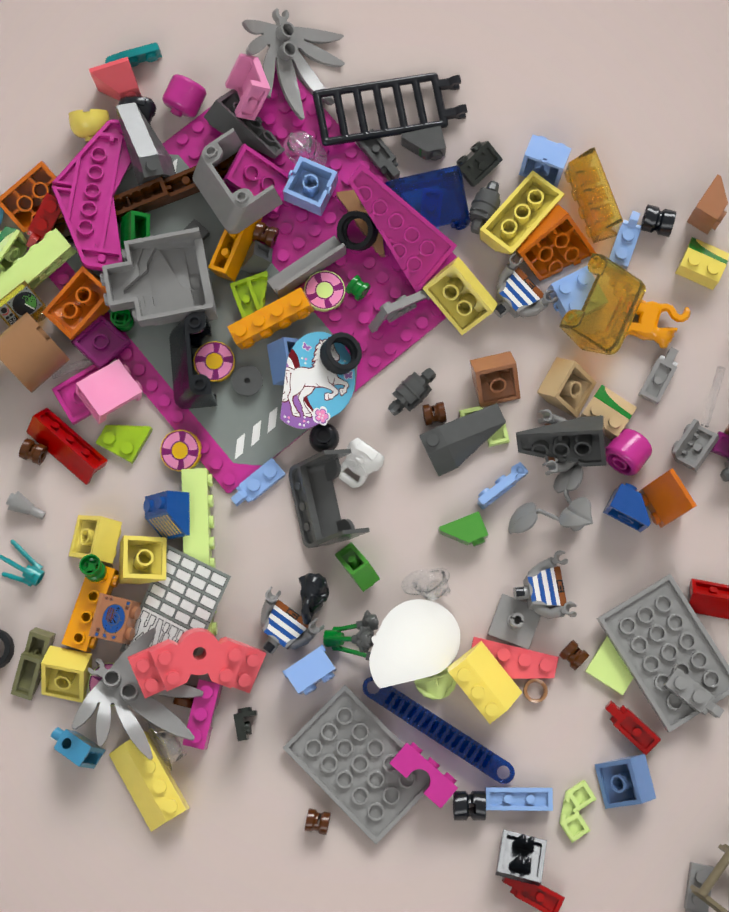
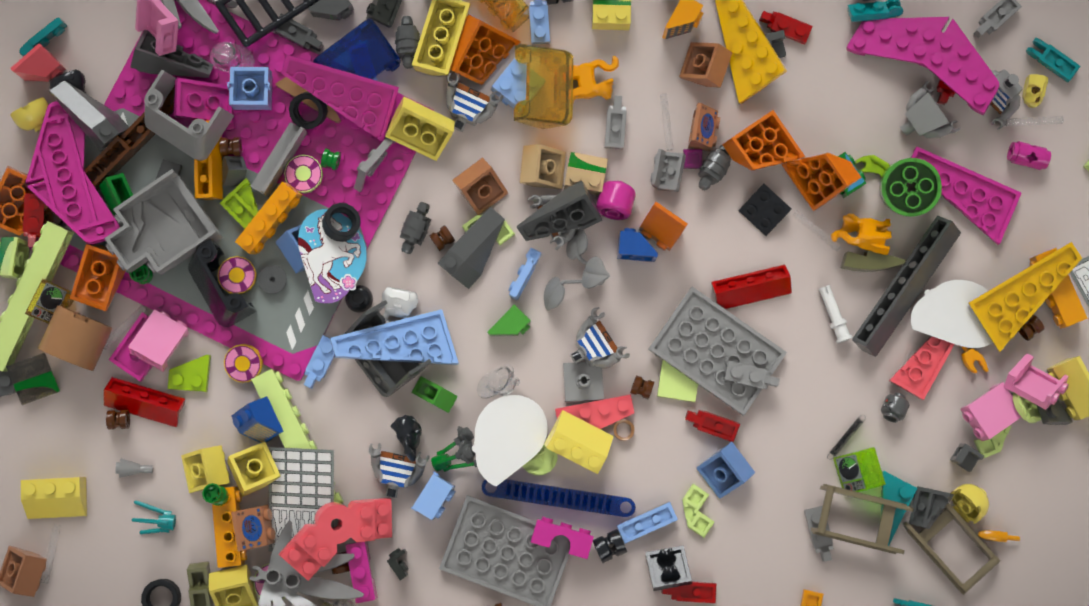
camera: 30 degrees left, 5 degrees up
(101, 342) = (132, 301): magenta plate -> none
(184, 96) = (104, 55): dark pink head -> none
(348, 497) = (402, 341): none -> light blue wing

